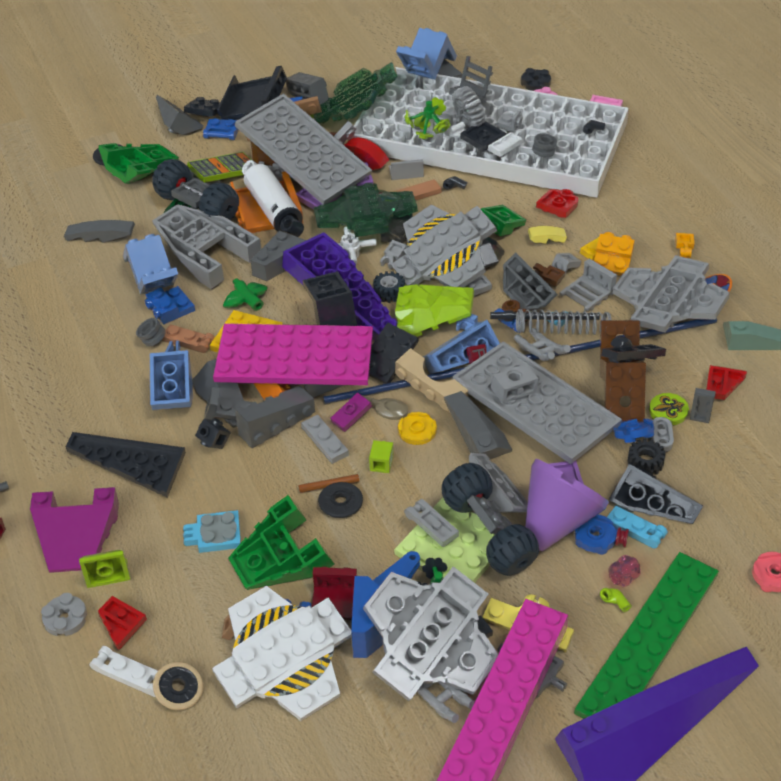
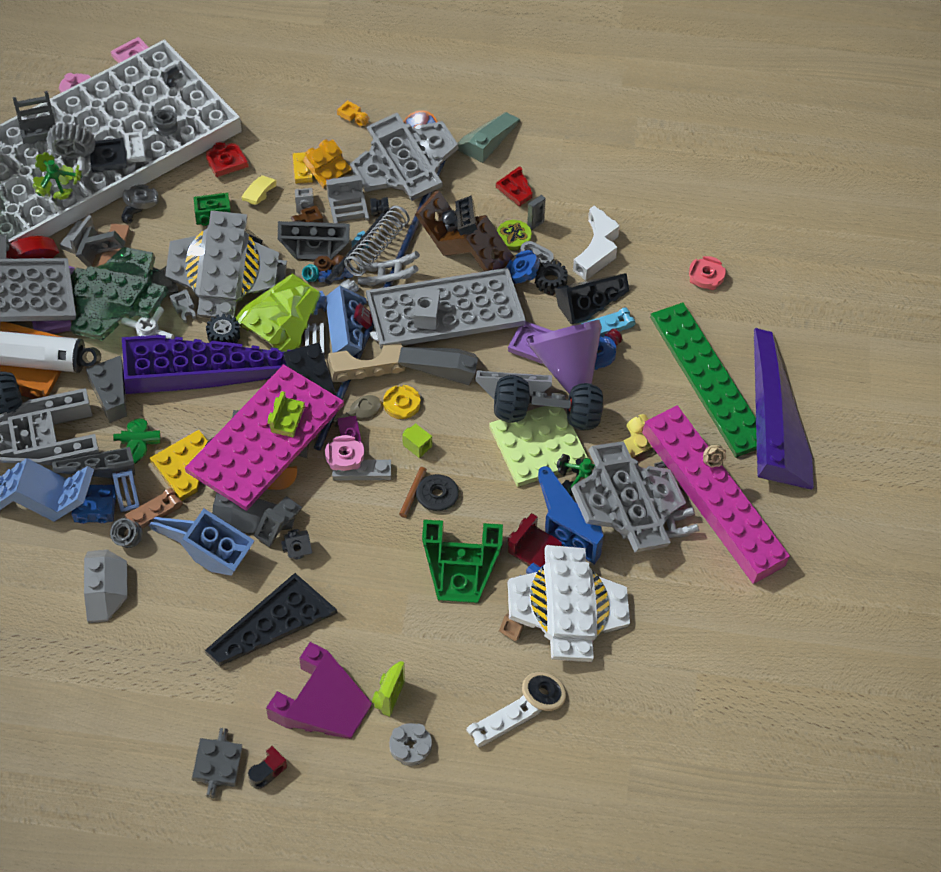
camera: 60 degrees left, 10 degrees up
(97, 343) = (104, 584): none -> light grey wedge
(120, 620) = (448, 704): red wing -> none
(190, 311) = (122, 474): none -> medium blue tile
(201, 286) = (103, 463): none -> dark grey wedge
(214, 532) = (402, 595): piece -> none
(273, 415) = (313, 490): dark grey wedge -> none
(316, 348) = (285, 415): none -> lime bracket
(320, 422) = (344, 462): none -> bright pink plate
(331, 300) = (231, 371): black bracket -> none
(402, 178) = (93, 244): none -> dark grey bracket
(429, 340) = (314, 328): none -> white tile
(432, 522) = (516, 442): light grey plate -> none
(473, 180) = (140, 197): none -> flat silver tile
(493, 304) = (306, 273): none -> teal plate
(503, 334) = (350, 285): none -> white plate
(510, 122) = (106, 126): light grey bracket -> none
(527, 673) = (714, 455): none -> tan plate
(535, 79) = (42, 67): black plate -> none
(602, 305) = (379, 206): none -> black wheel
(616, 597) = (660, 374): lime arm -> none
(624, 570) = (645, 354): clear pink piece -> none
(715, 474) = (601, 249): none -> white arch

